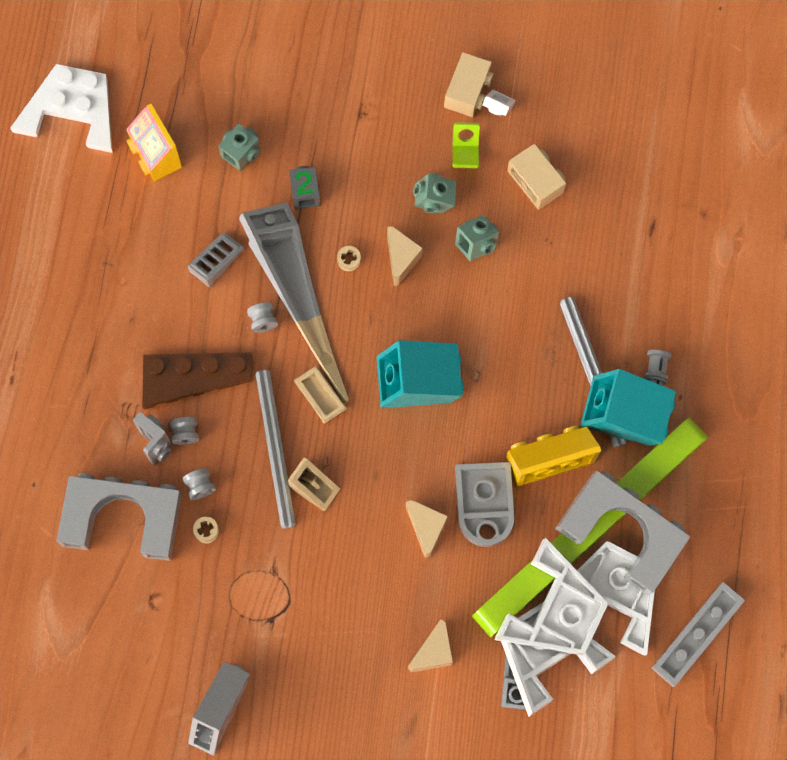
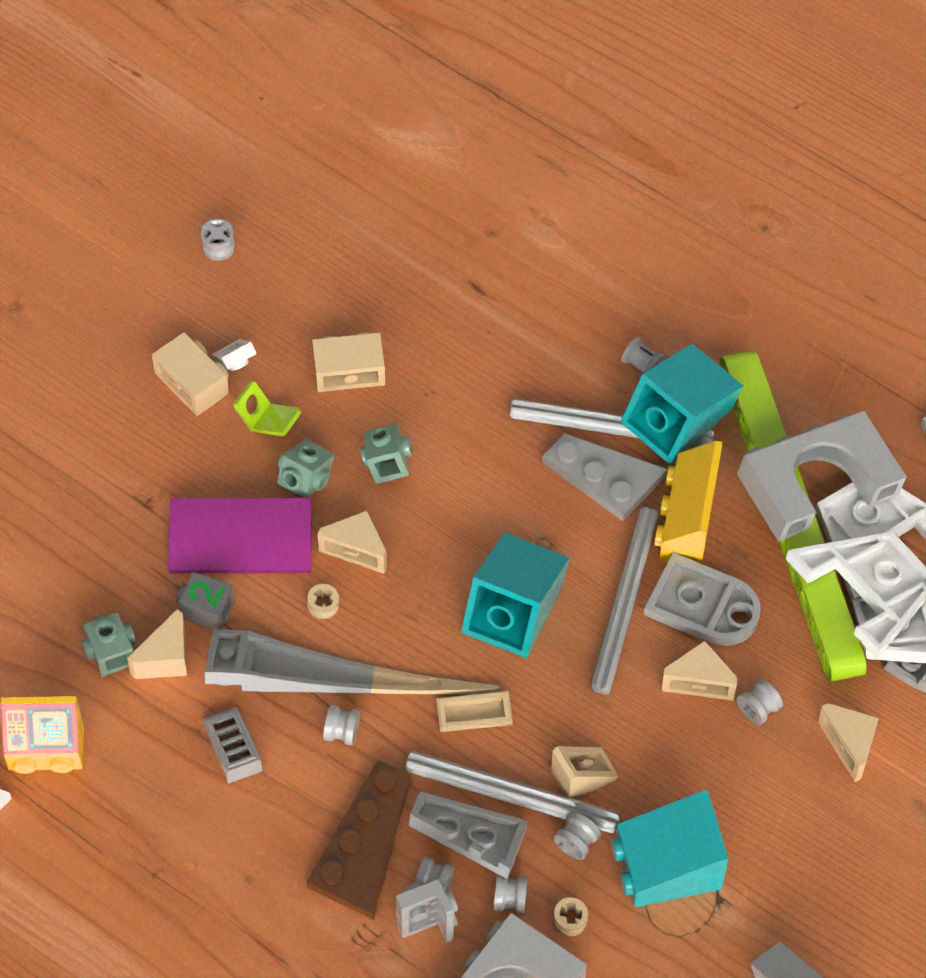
camera: 60 degrees left, 15 degrees down
(229, 437) = (470, 830): none -> light grey wing
(257, 182) = (162, 652): none -> tan slope
(262, 505) = (577, 836): none -> light grey wheel
(278, 570) = (671, 851): none -> teal slope
(366, 182) = (240, 535): none -> magenta slope
(427, 576) = (759, 702): none -> light grey wheel
(458, 449) = (624, 601): none -> light grey axle
(550, 388) = (604, 474): none -> light grey wing
(583, 37) = (218, 231): none -> light grey wheel

